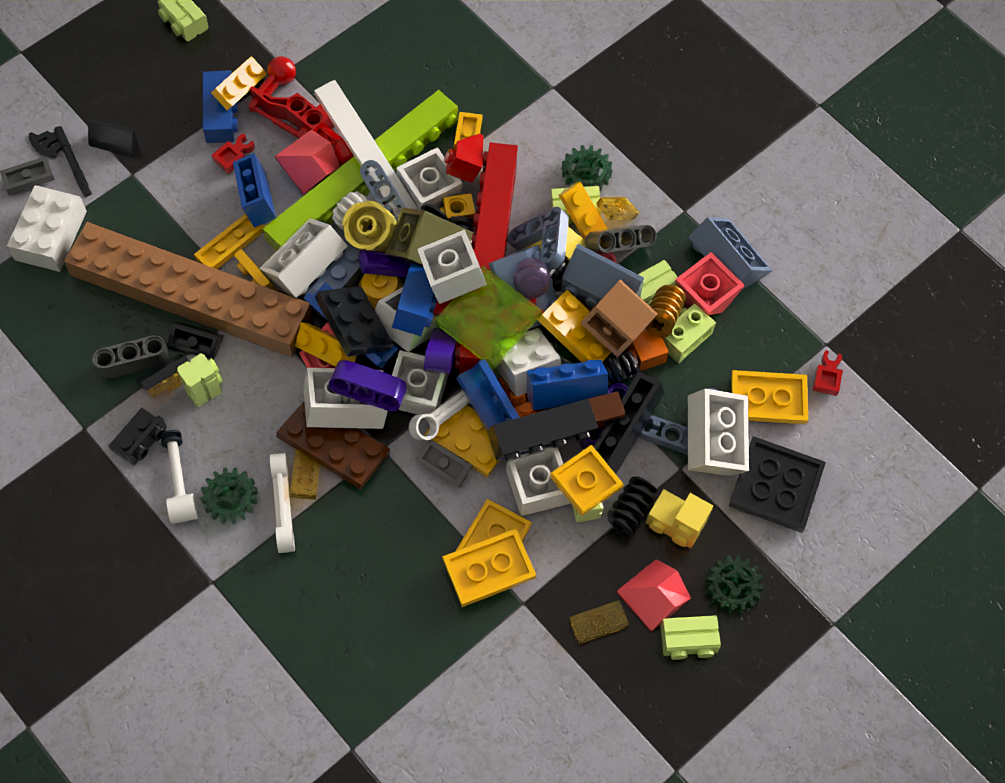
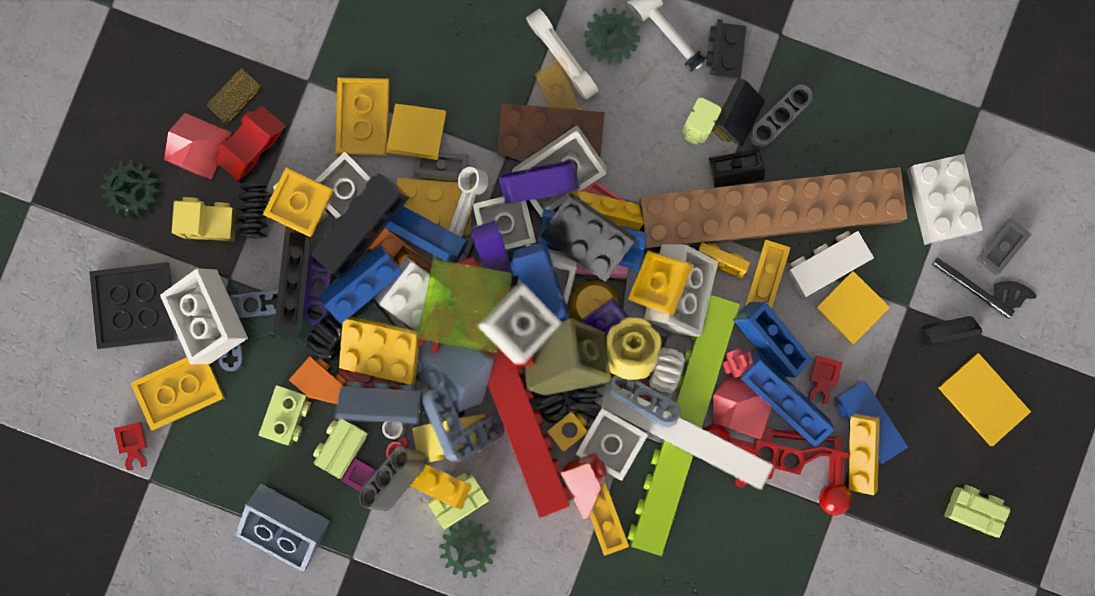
camera: 155 degrees right, 20 degrees up
(122, 84) = (984, 399): none -> yellow tile
(172, 227) = (829, 263): none -> white brick
(175, 192) = (852, 307): none -> yellow tile
(271, 144) = (787, 400): none -> blue fence
(291, 192) = (737, 362): none -> coral gear
(316, 259) = (660, 282): none -> yellow tile
(449, 502) = (416, 131): none -> yellow tile
(489, 567) = (348, 87): yellow plate -> none
(531, 278) = (444, 366): clear purple hair -> none
(604, 568) = (243, 149): none -> red brick
(606, 408) = (314, 280): reddish brown panel -> none
(617, 208) = (413, 515): clear yellow plate -> none
(618, 318) = (343, 369): medium nougat slope -> none
(645, 259) = (358, 474): none -> magenta plate
(668, 304) = (311, 415): pearl gold piece -> none
(690, 636) = (147, 120): yellowish green brick -> none
(709, 285) = (283, 473): coral slope -> none

